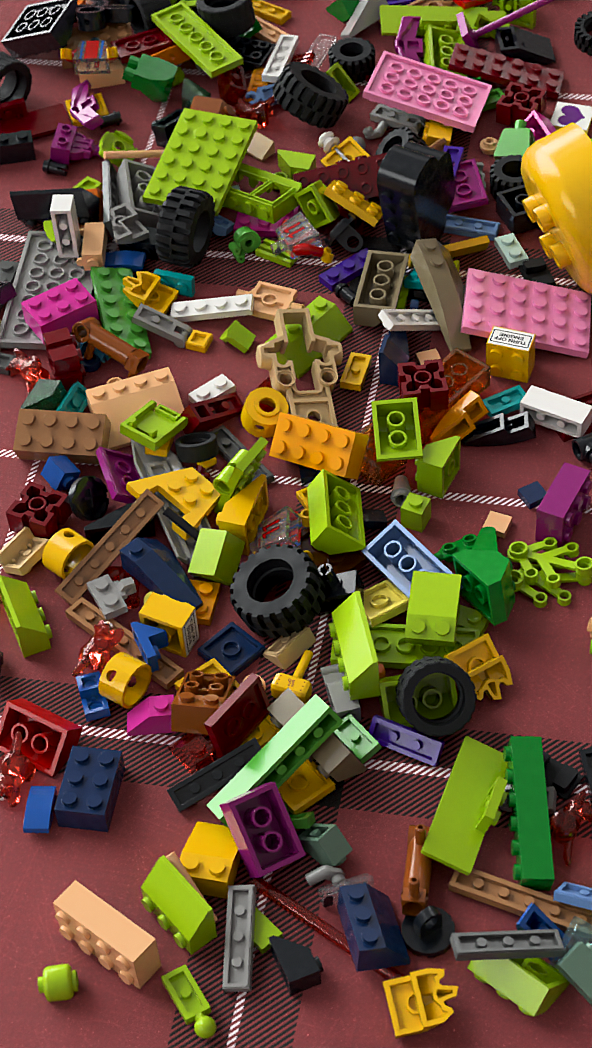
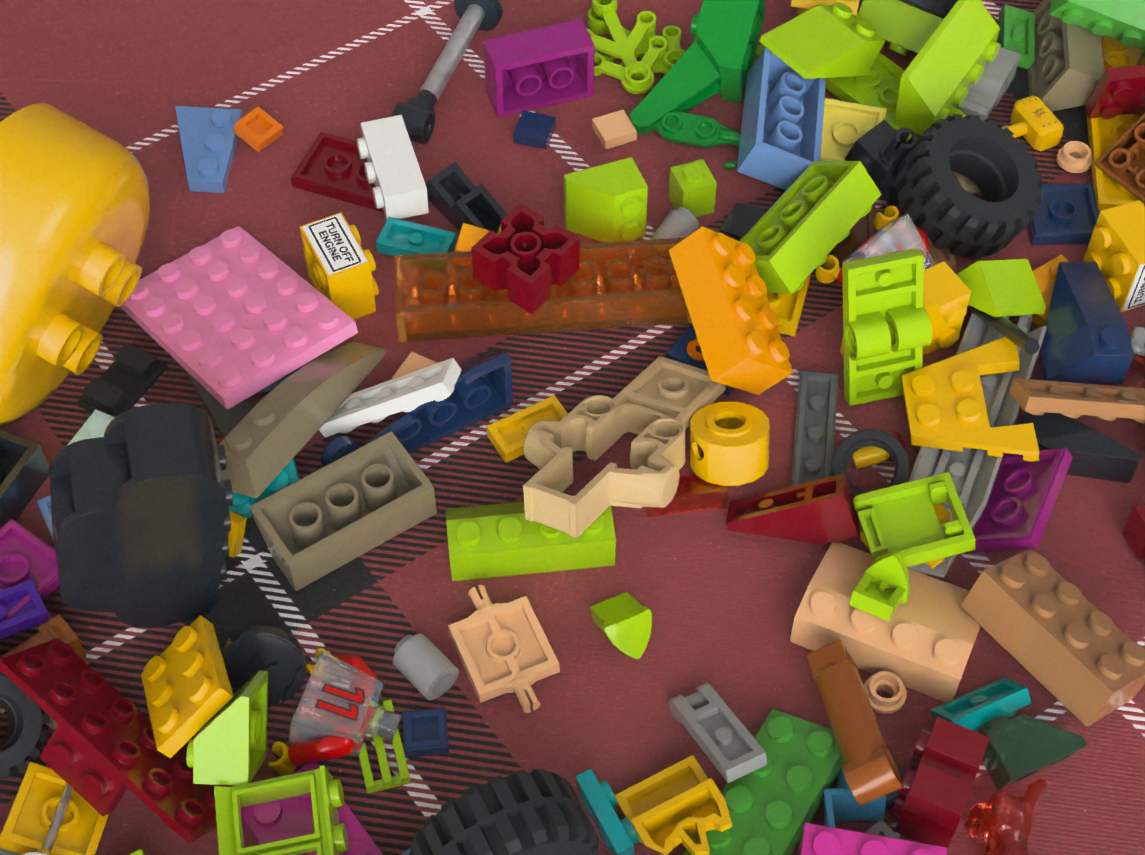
camera: 140 degrees left, 5 degrees up
(60, 472) = (1104, 581): blue brick -> none
(88, 498) = (1100, 511): black tile -> none
(141, 391) = (882, 587): none -> lime tile
(199, 341) = (674, 676): yellow tile -> none
(213, 308) = (604, 705): white plate -> none
(216, 387) = (749, 568): white plate -> none
(244, 242) = (405, 805): bright green piece -> none
(267, 267) = (425, 732): none -> dark blue tile
(290, 276) = (424, 666): none -> light grey brick
(343, 291) = (385, 573): black pin -> none
(344, 271) = (325, 615): dark purple plate -> none
(396, 429) = (631, 228): lime slope -> none

